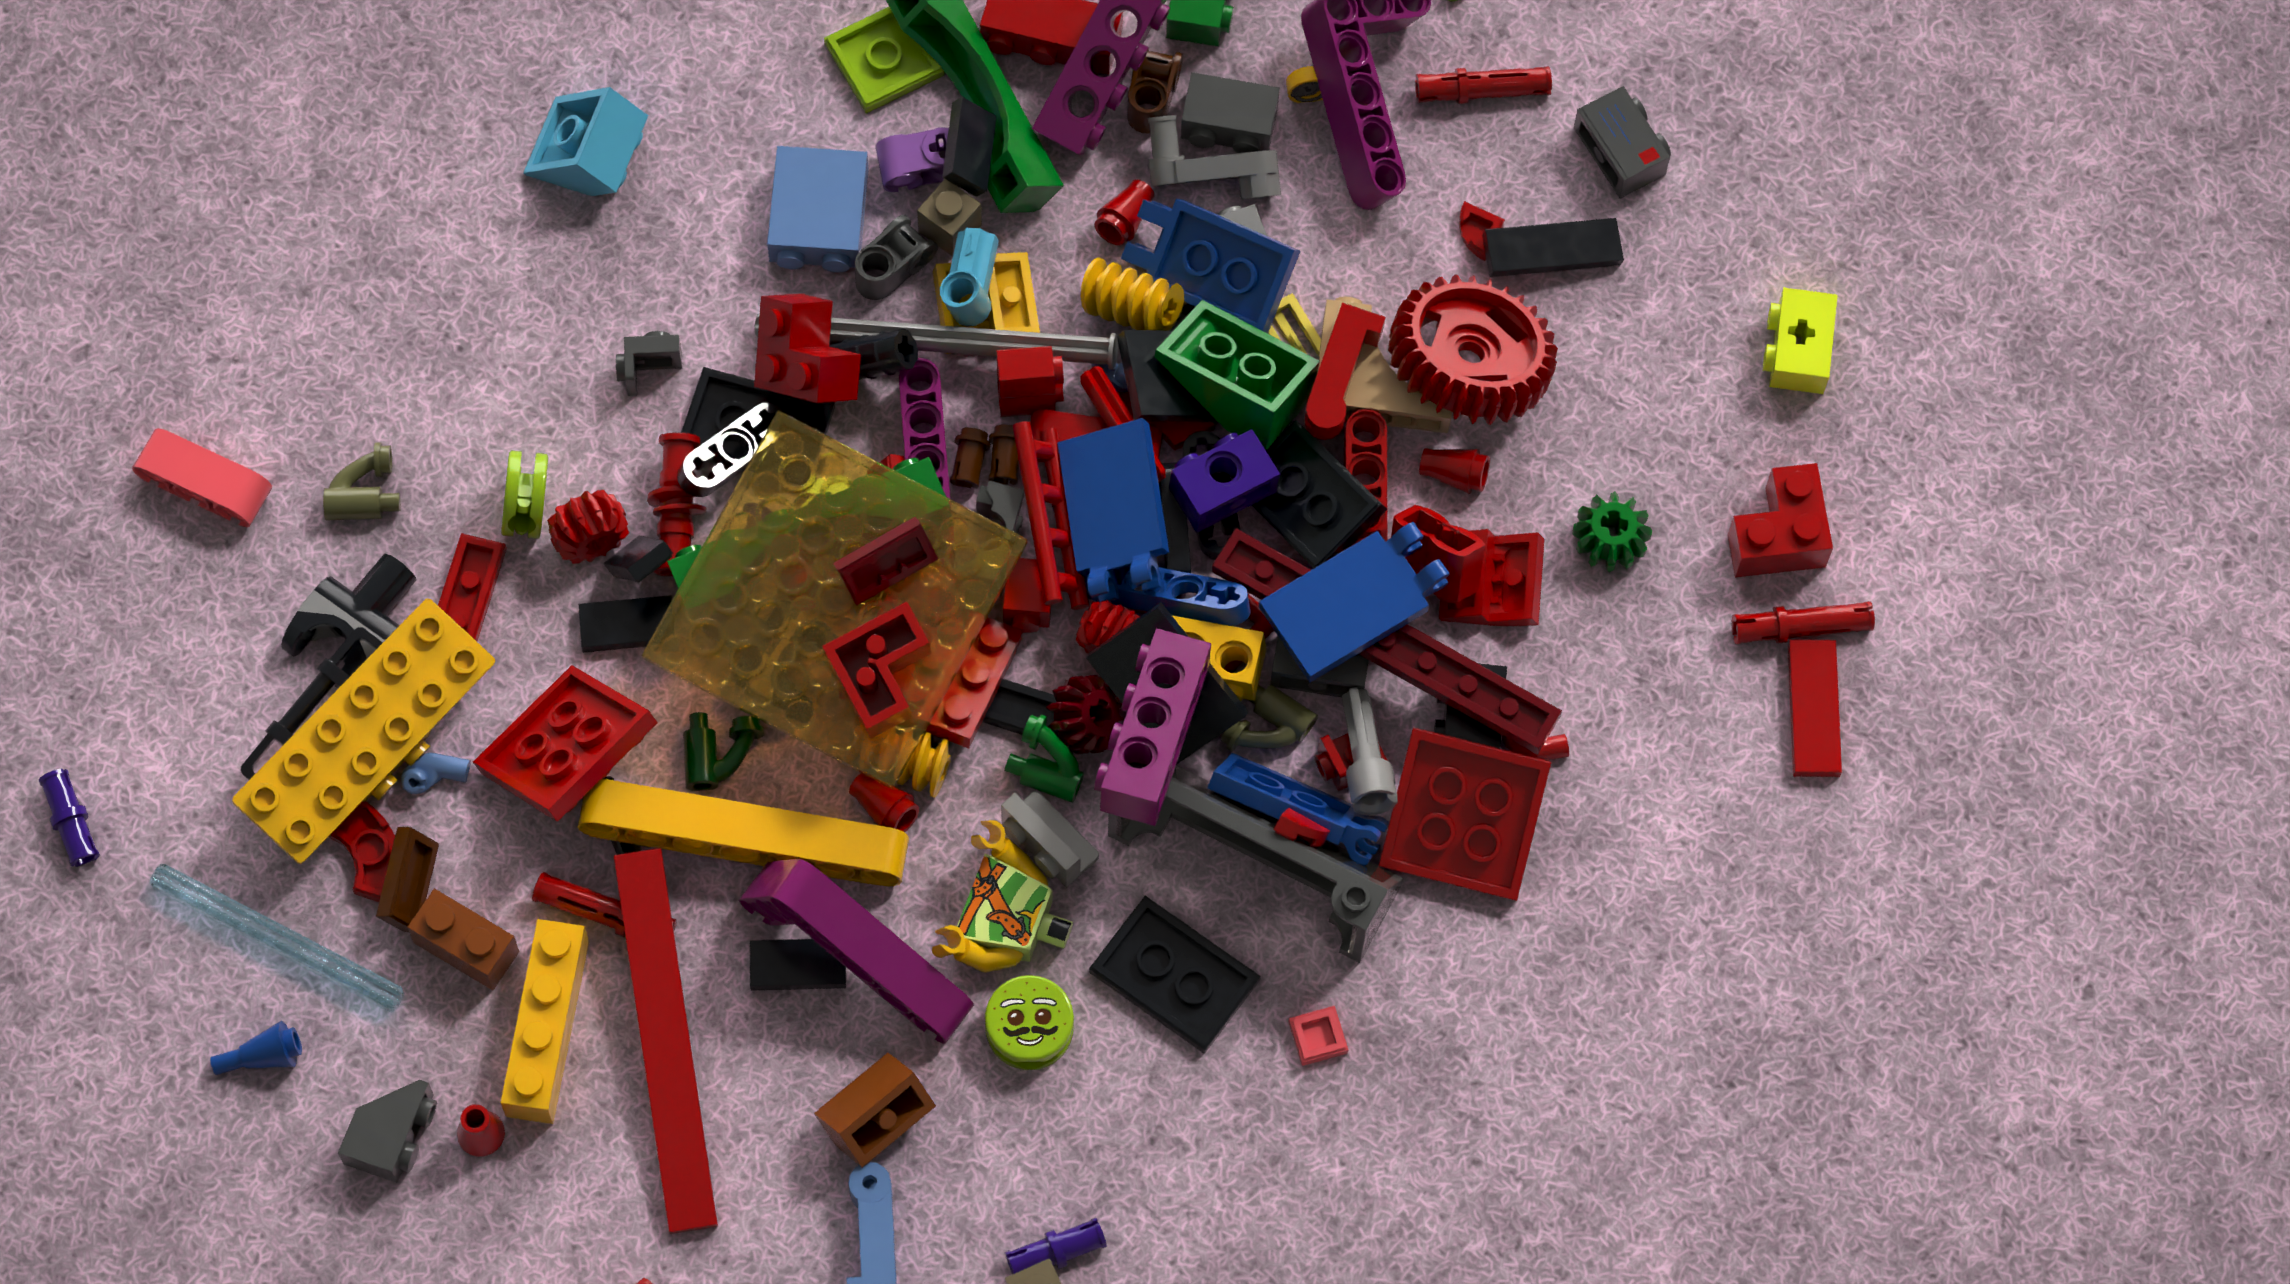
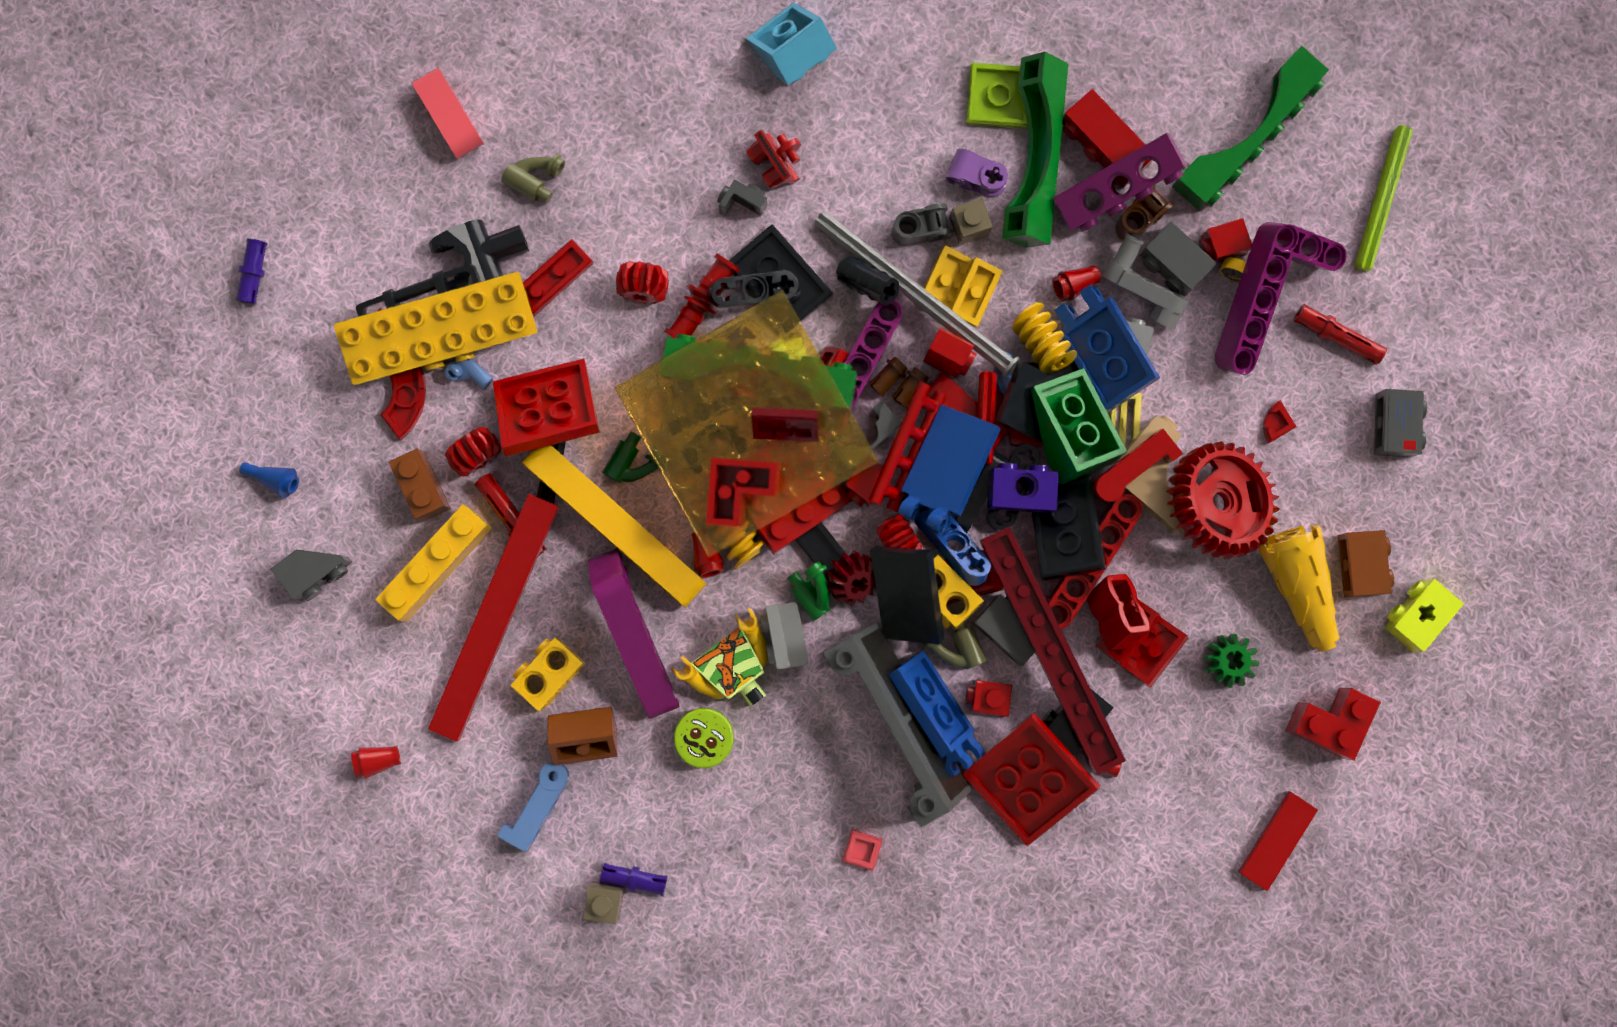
camera: 30 degrees right, 15 degrees up
(277, 937) = (322, 415): clear light blue axle -> none
(407, 877) = (412, 428): reddish brown tile -> none
(480, 1140) = (367, 604): red cone -> none
(506, 854) = (473, 451): none -> red gear
(524, 497) = (617, 240): lime head -> none
(620, 622) = (628, 350): black tile -> none
(635, 283) = (767, 147): none -> red hips
(639, 558) = (657, 321): black tile -> none
(790, 1067) = (553, 680): none -> yellow brick
(793, 966) = (587, 613): black tile -> none
(796, 352) = (825, 255): red brick -> none
(817, 207) = (898, 167): medium blue brick -> none
(969, 146) = (1008, 186): black tile -> none
(970, 274) = (959, 265): medium azure piece -> none
(1141, 791) = (919, 600): magenta brick -> none
(1174, 974) = (805, 760): black tile -> none
(1274, 56) = (1226, 240): none -> red brick
(1294, 824) = (923, 735): red tile -> none
(1352, 600) = (1046, 616): blue tile -> none
(1370, 776) = (989, 724): light grey piece -> none
(1456, 467) = (1166, 562): red cone -> none
(1552, 247) = (1313, 462): black tile -> none
(1635, 386) = (1304, 581): none -> yellow cone
(1693, 324) = (1365, 563): none -> dark orange brick
(1795, 623) = (1293, 780): red pin -> none

